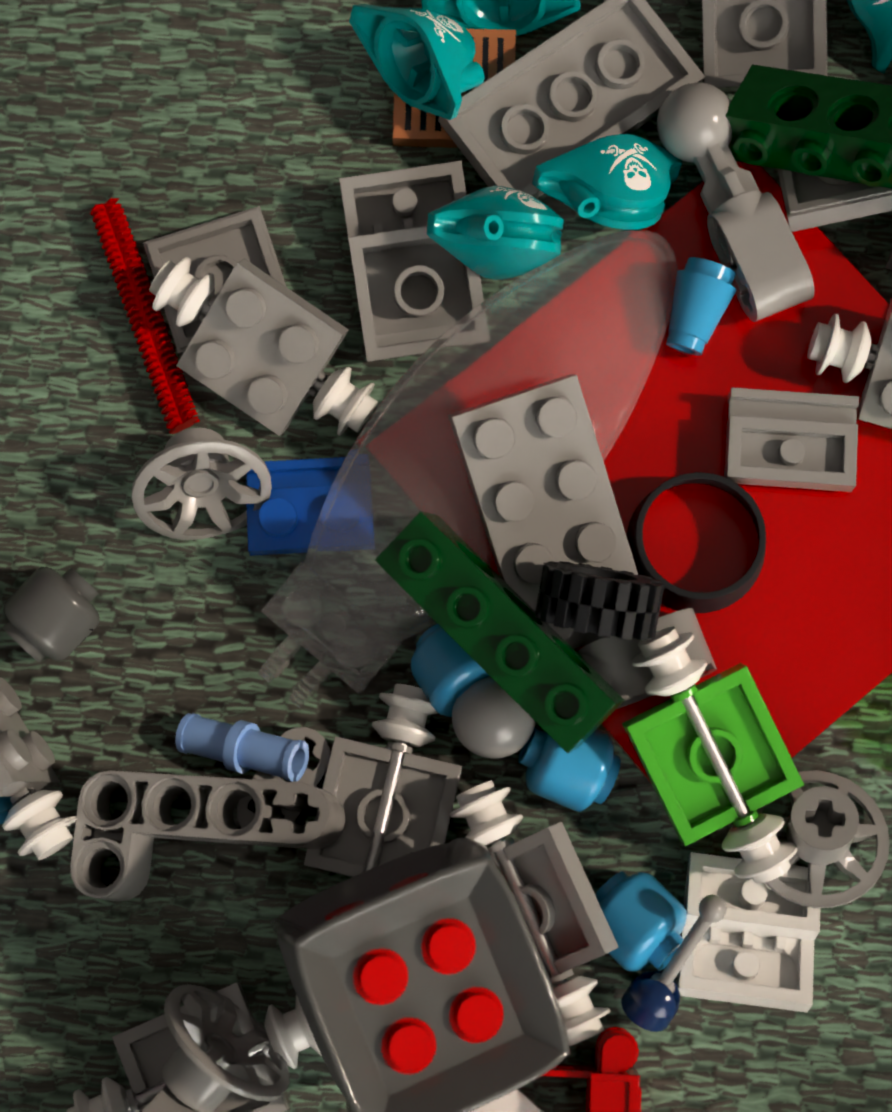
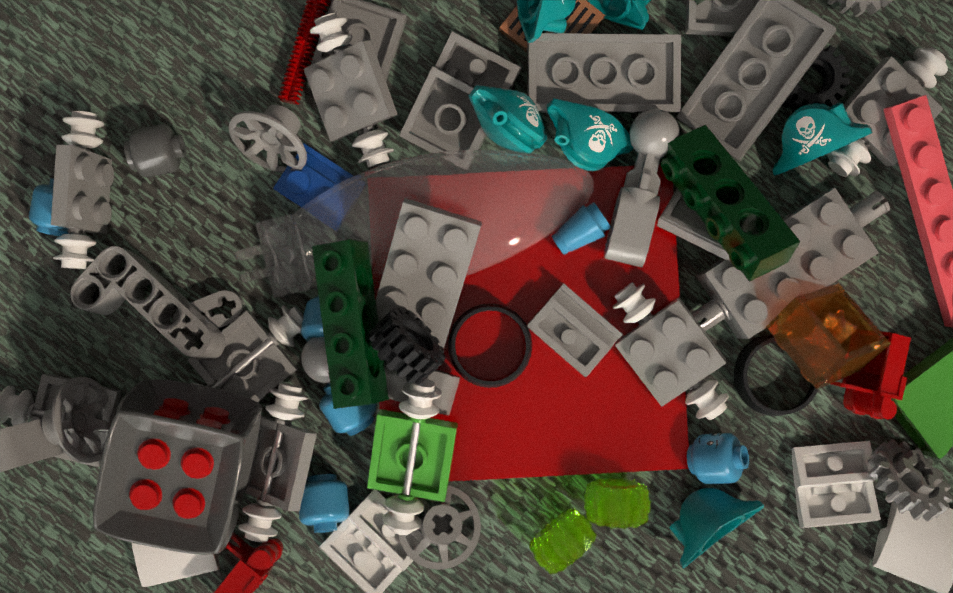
camera: 30 degrees right, 10 degrees up
(242, 747) = (198, 283): light blue pin -> none
(654, 995) = (304, 543): hinge -> none

